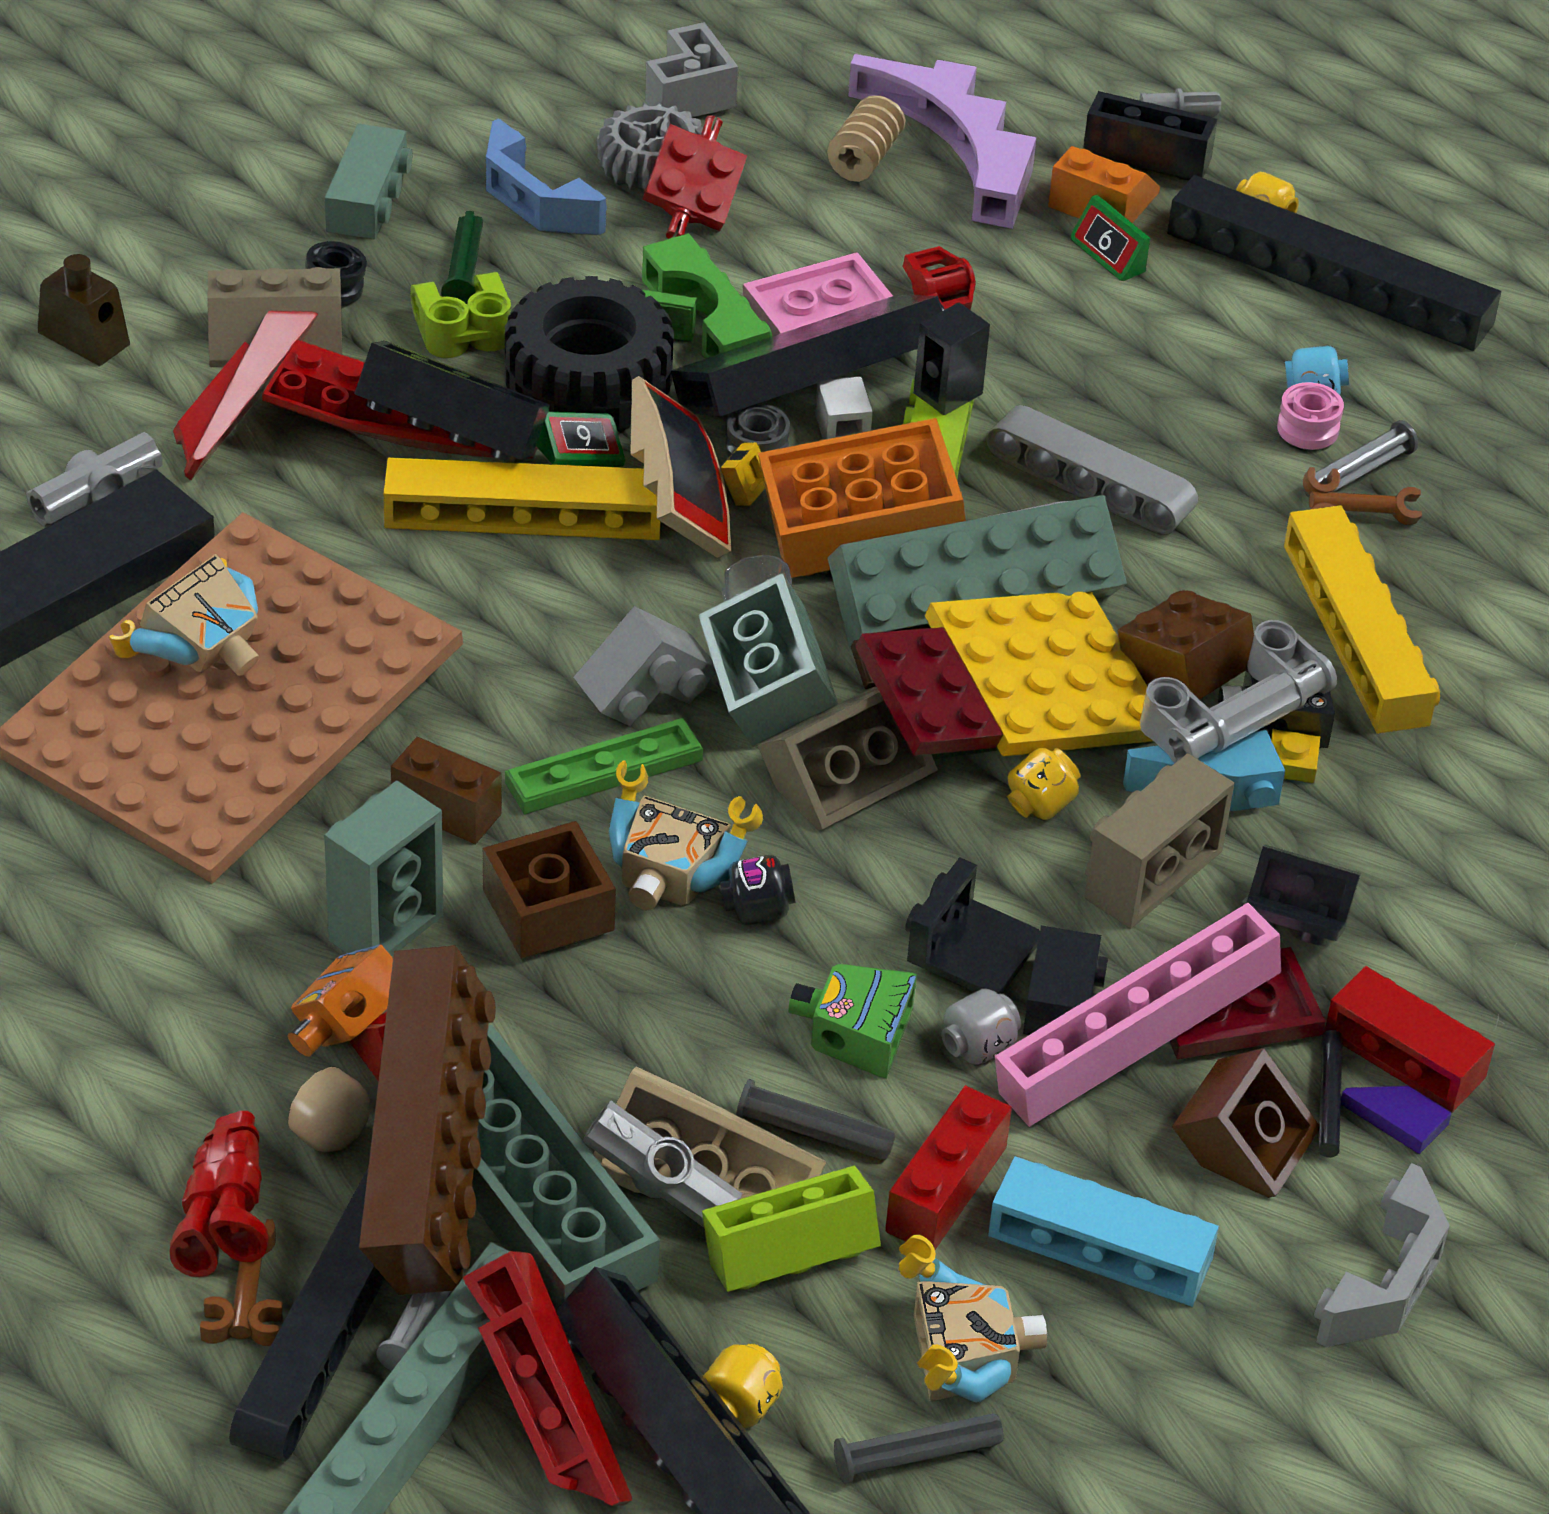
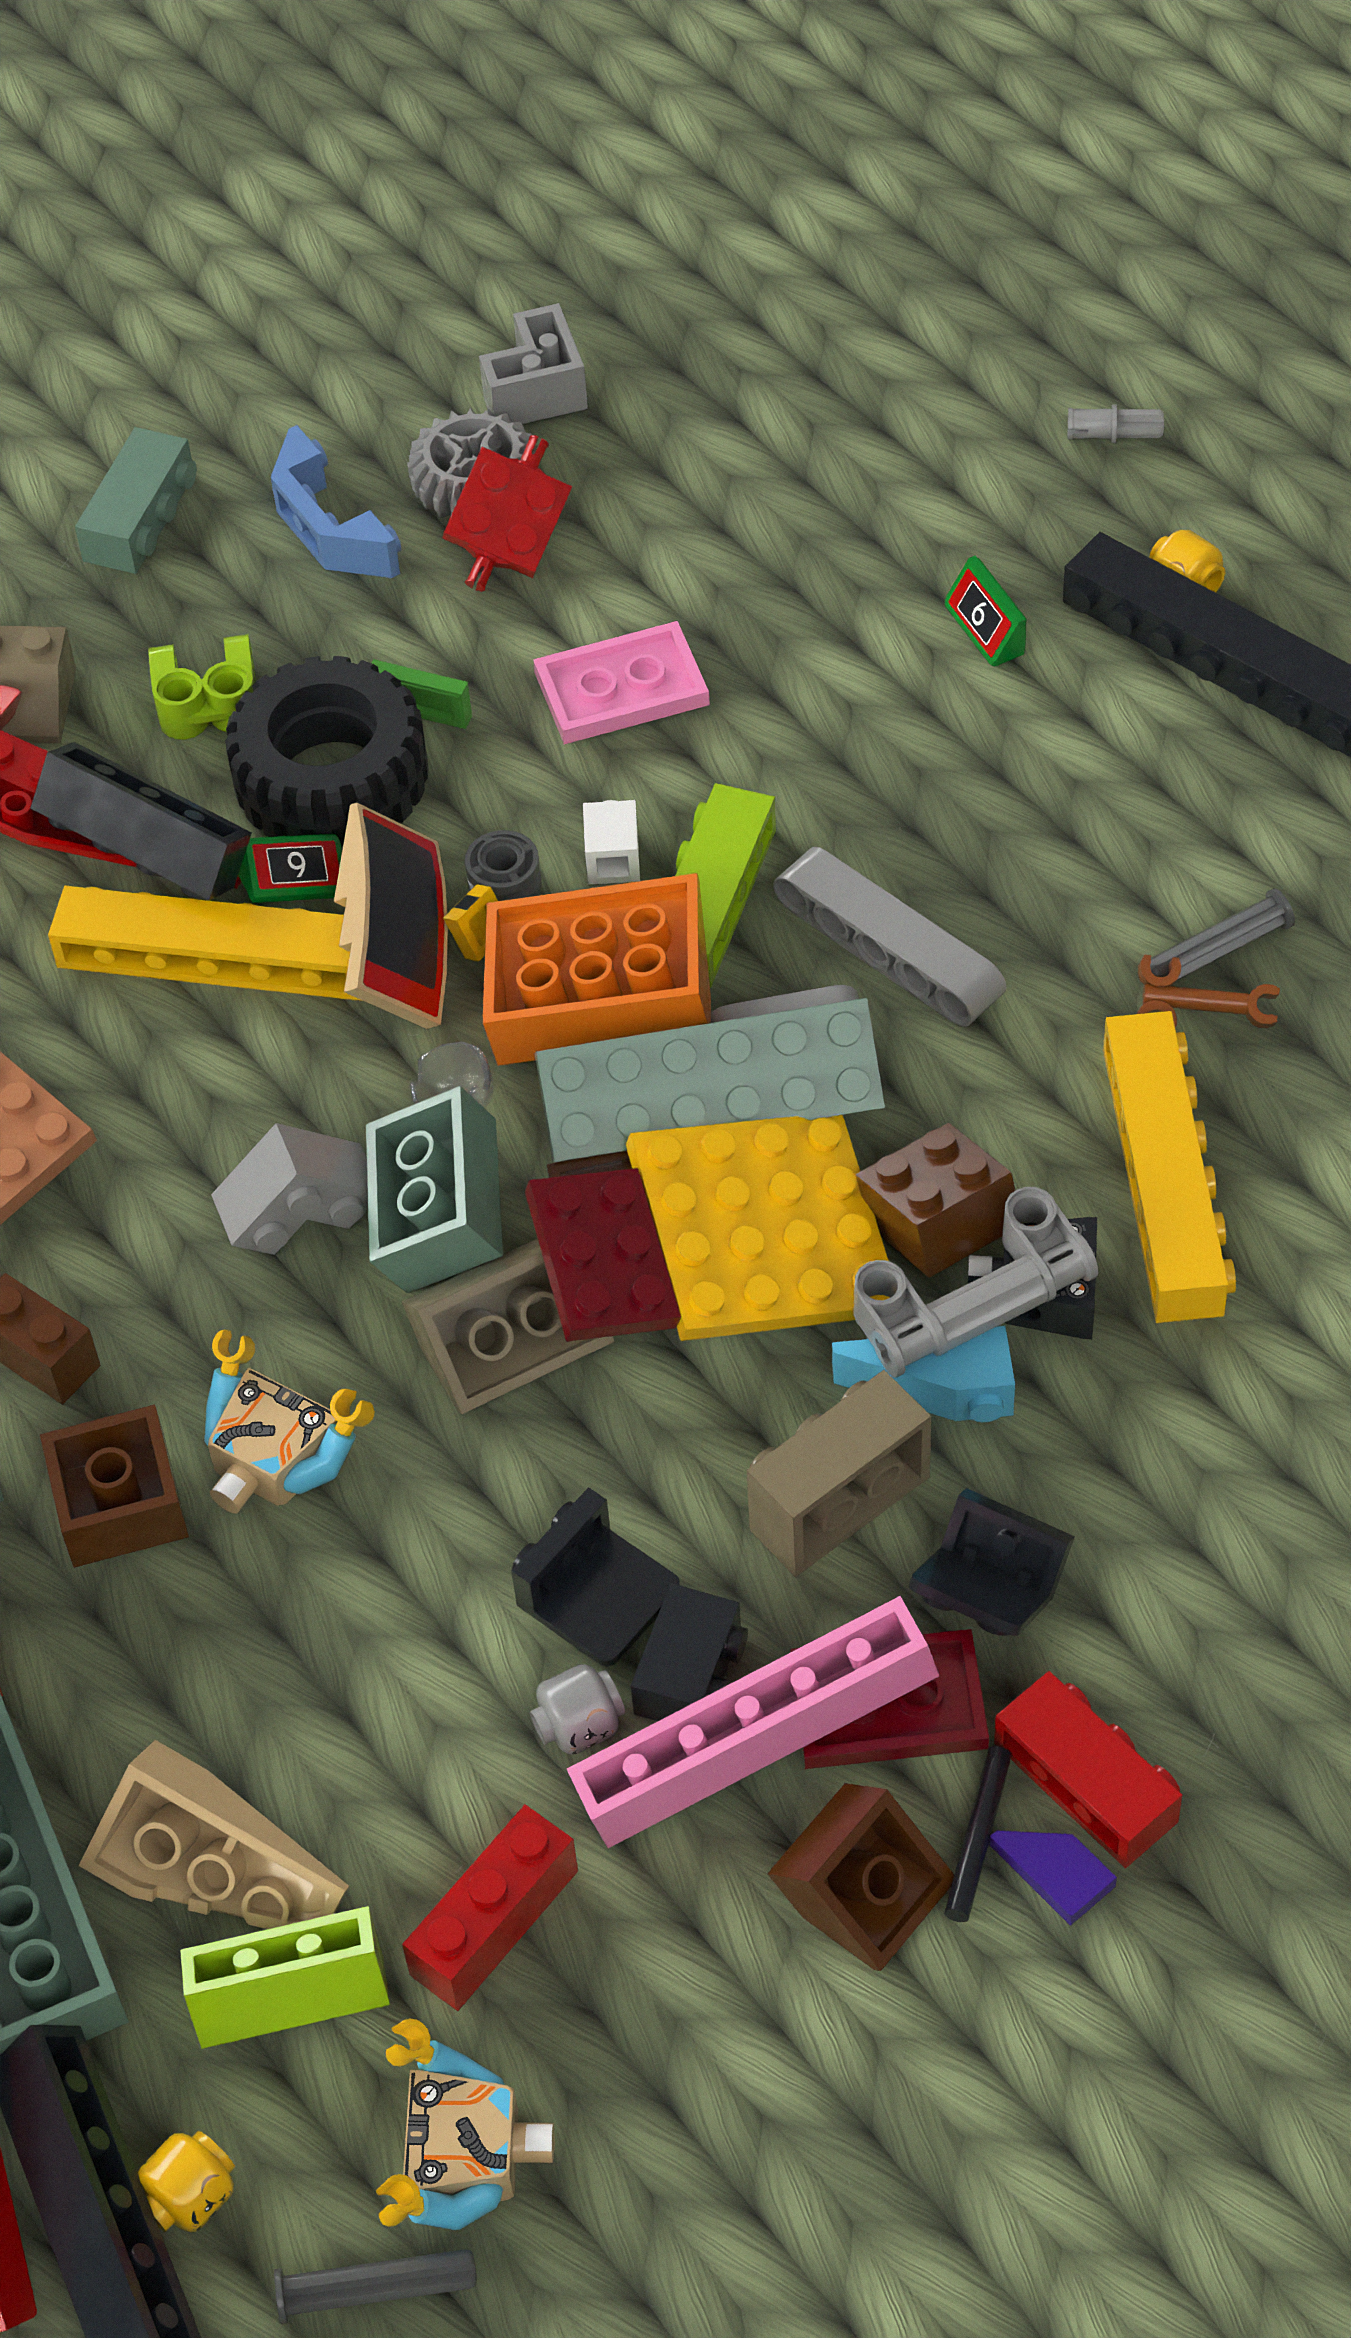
camera: 15 degrees right, 10 degrees up
(347, 258) = (80, 613): black wheel -> none
(464, 258) = (224, 609): dark green axle -> none
(595, 766) = (236, 1305): bright green tile -> none
(633, 1149) = (115, 1859): light grey piece -> none
(686, 269) = (504, 726): bright green arch -> none
(758, 889) = (360, 1500): black head -> none
(803, 355) = (584, 765): black brick -> none
(815, 1121) = (354, 1822): dark grey axle -> none
(858, 1014) = (438, 1681): bright green torso -> none
(865, 137) = (723, 461): tan piece -> none
(942, 282) = (769, 664): red piece -> none
(951, 358) = (731, 792): black brick -> none
(971, 124) = (859, 447): lavender arch -> none
(1043, 783) = (727, 1376): yellow head -> none
(1084, 174) = (998, 535): orange slope -> none
(1103, 1231) = (657, 2007): medium azure brick -> none
(1150, 136) = (1061, 472): black brick -> none
(1298, 754) = (1044, 1351): yellow plate -> none
(1310, 415) = (1170, 873): bright pink wheel -> none
(1317, 366) = (1190, 817): medium azure head -> none
(1367, 1311) = (935, 2149): light grey slope -> none

